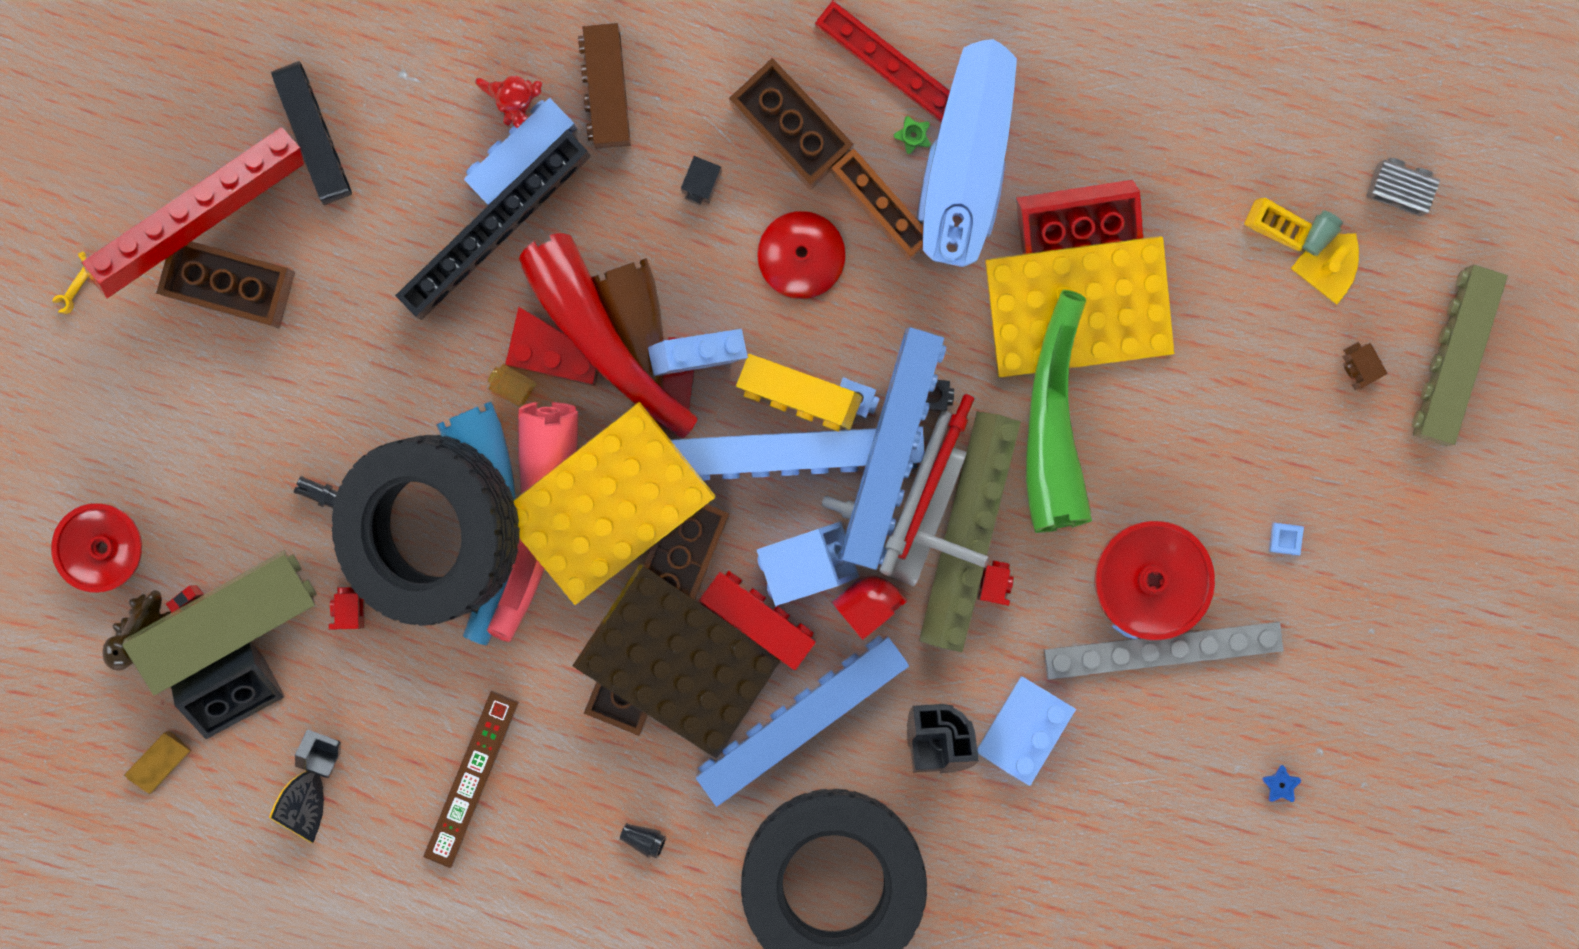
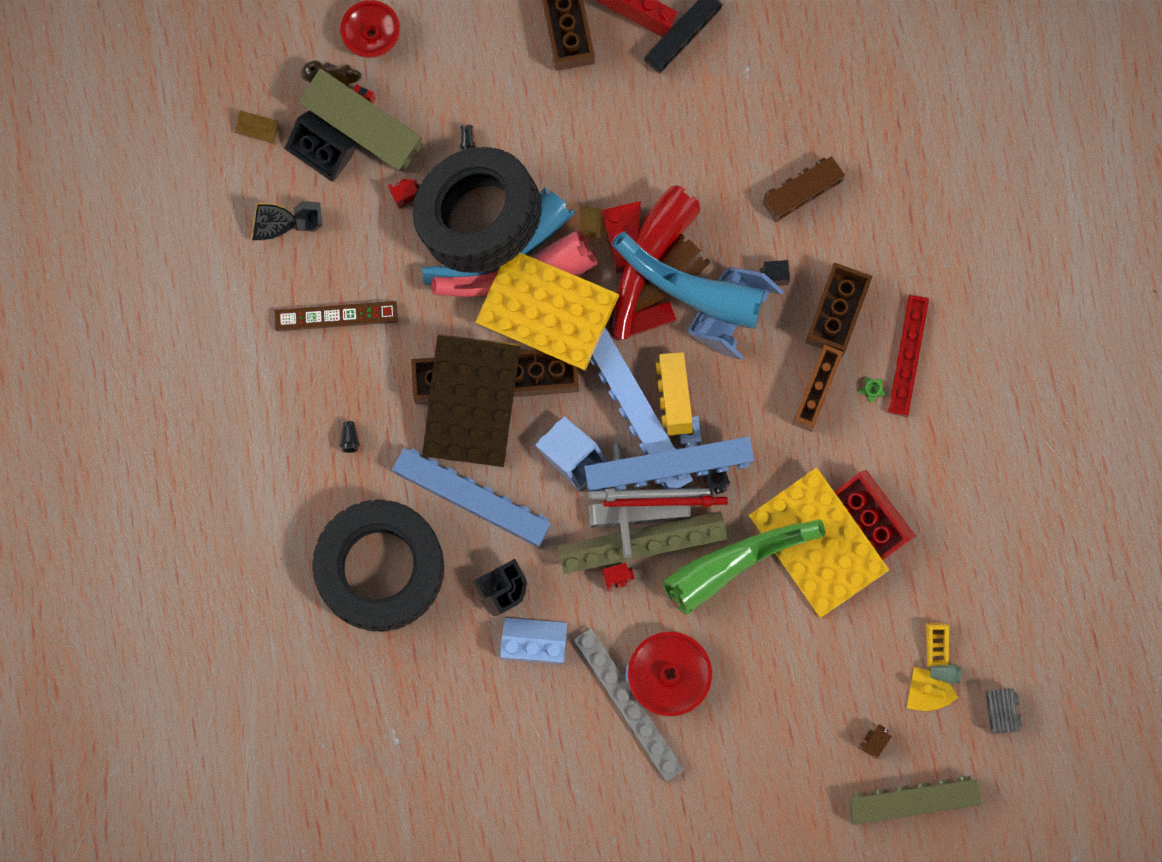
camera: 70 degrees right, 10 degrees down
(493, 225) = (683, 163): black brick -> none
(511, 96) = (767, 135): red animal -> none
(518, 151) = (735, 158): light blue brick -> none
(697, 352) = (668, 320): light blue brick -> none
(705, 274) = (719, 299): none -> dark azure brick
(714, 267) = (717, 333): none -> medium blue windscreen
(757, 620) = (520, 440): red brick -> none
(795, 275) = (759, 370): red dish -> none
(868, 604) = (565, 501): red brick -> none
(968, 155) = (875, 425): light blue piece -> none
(1286, 539) = (739, 749): light blue tile -> none
(1287, 791) = (584, 828): blue plate -> none

